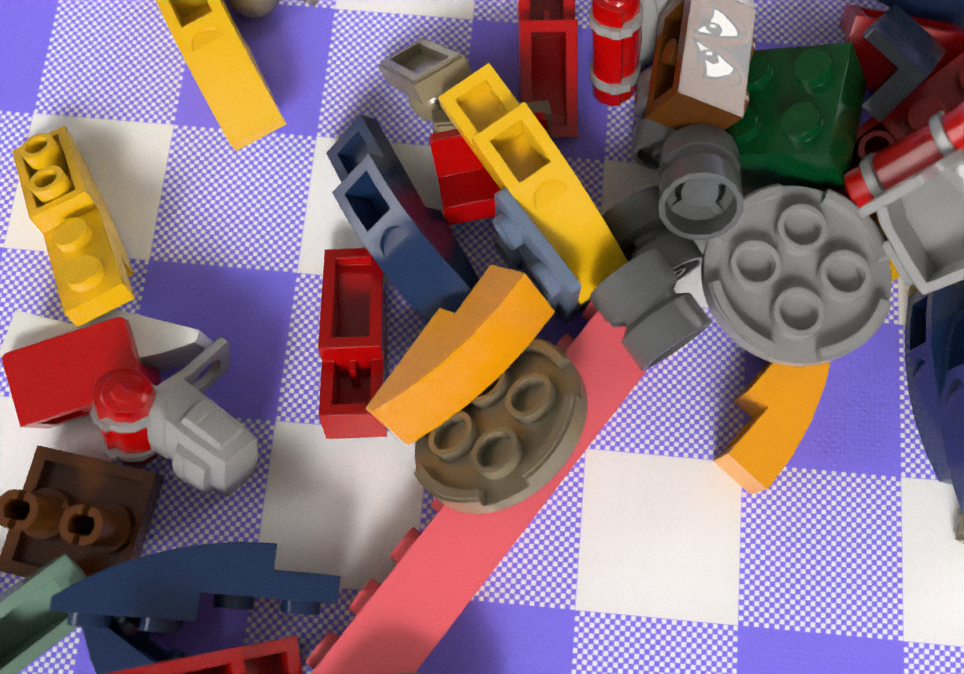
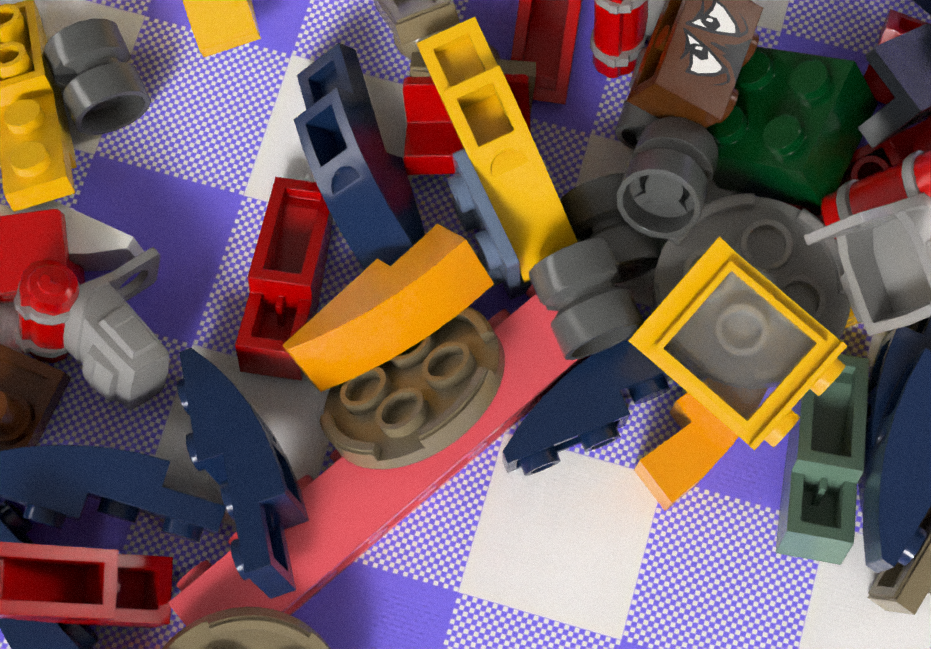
camera: 15 degrees right, 0 degrees up
(136, 186) = (96, 79): none -> dark grey wheel
(359, 536) = (249, 467): none -> dark blue slope
(668, 404) = (585, 407): none -> dark blue slope
(810, 328) = (740, 346): none -> window
(892, 423) = (824, 468): none -> sand green slope

